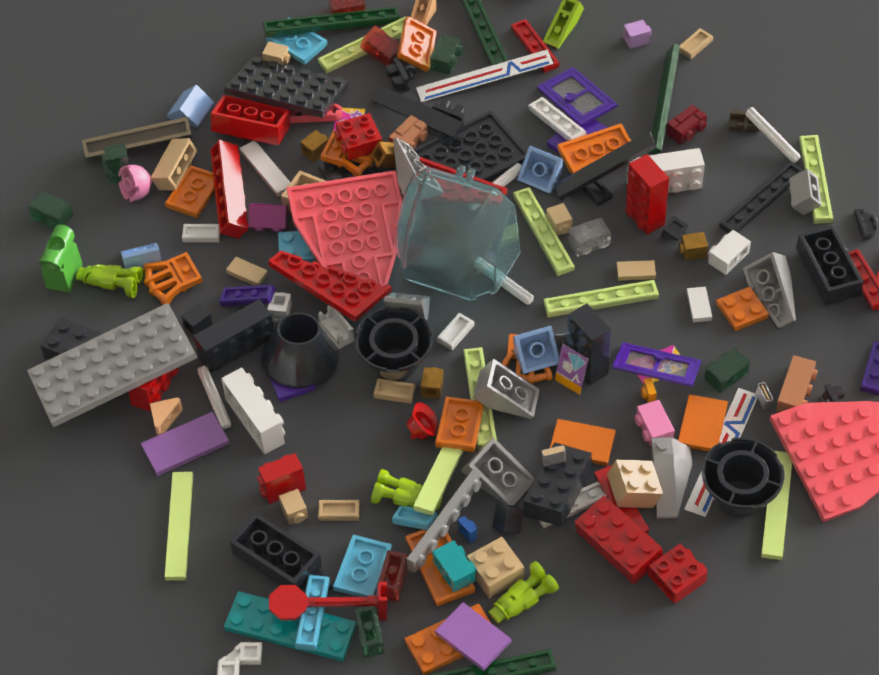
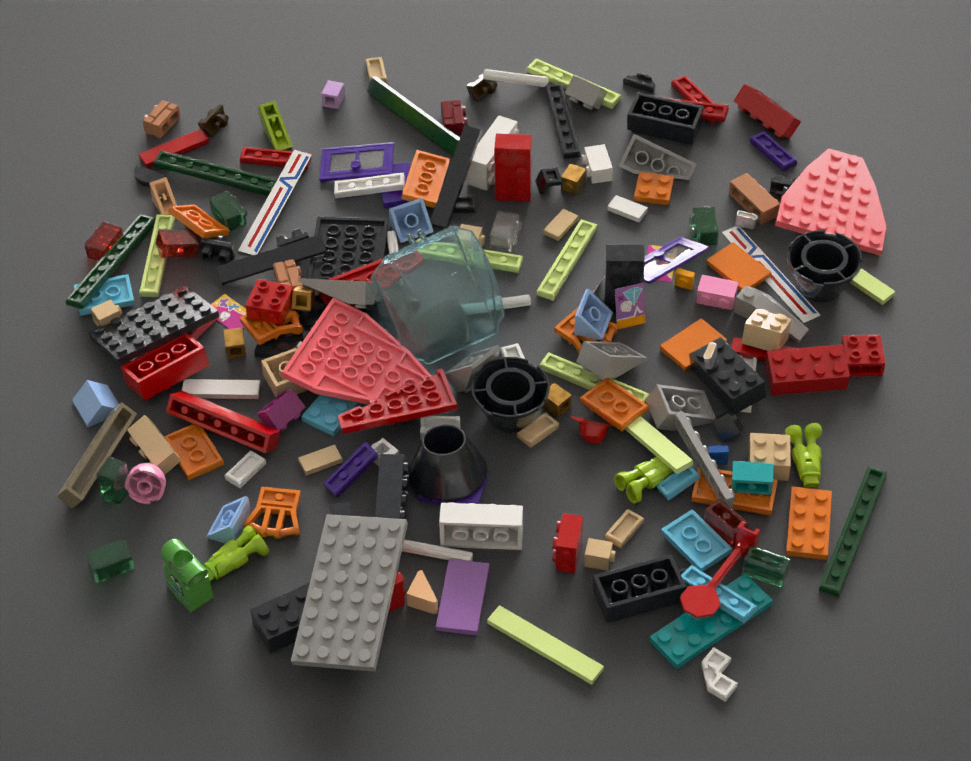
camera: 55 degrees left, 5 degrees down
(473, 636) = (824, 503): medium lavender tile -> none

